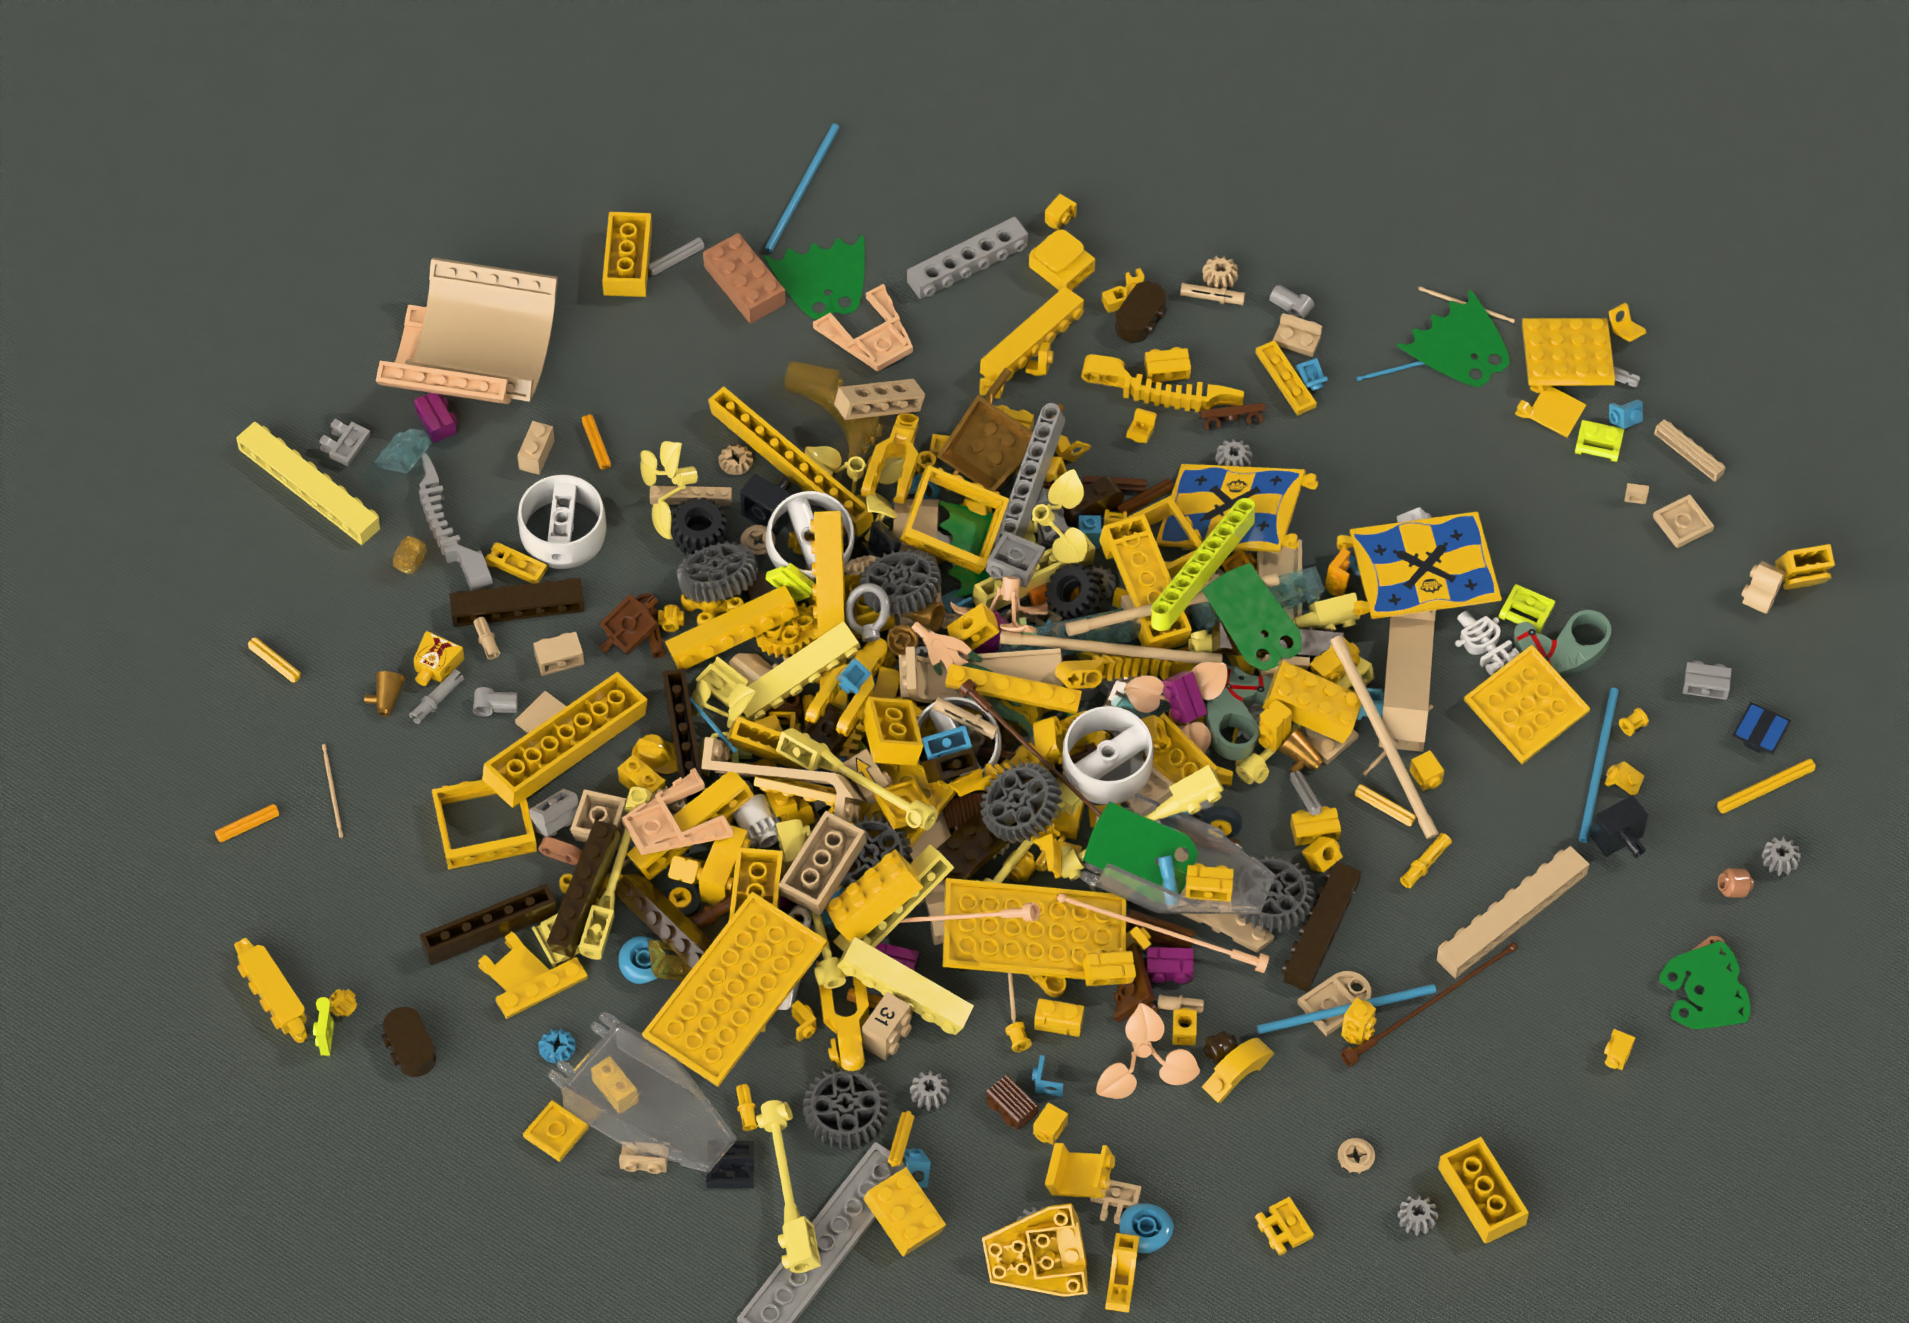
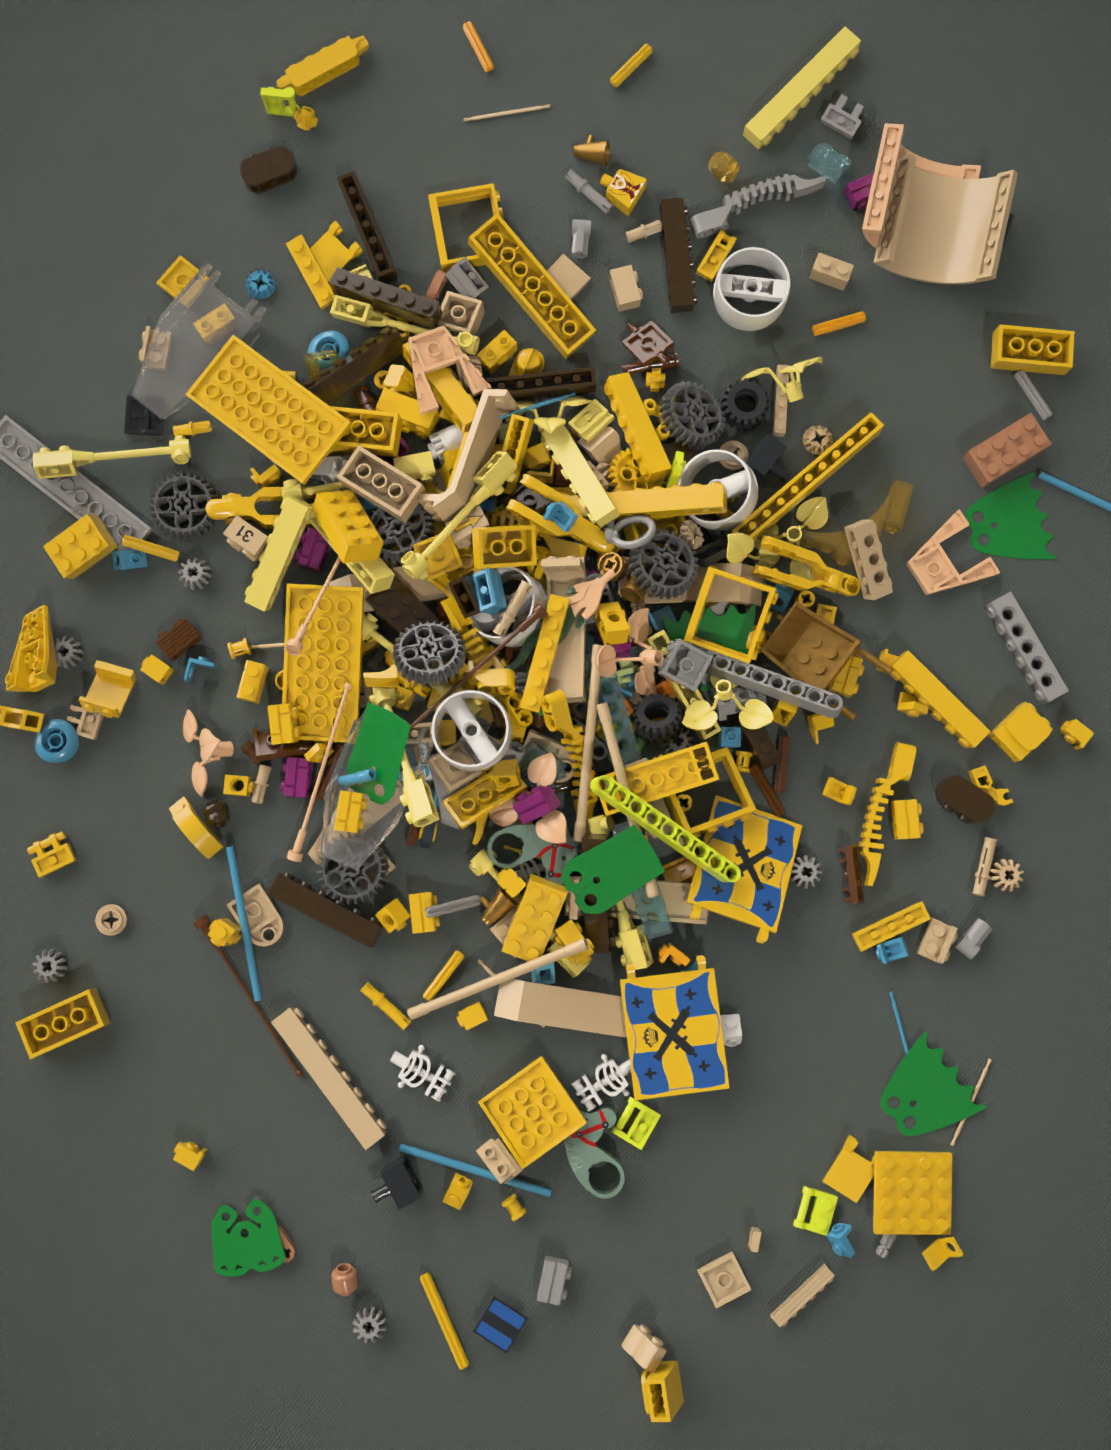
camera: 90 degrees right, 25 degrees up
(1495, 825) = (404, 1062): none -> white torso
(1583, 726) = (499, 1160): none -> tan panel

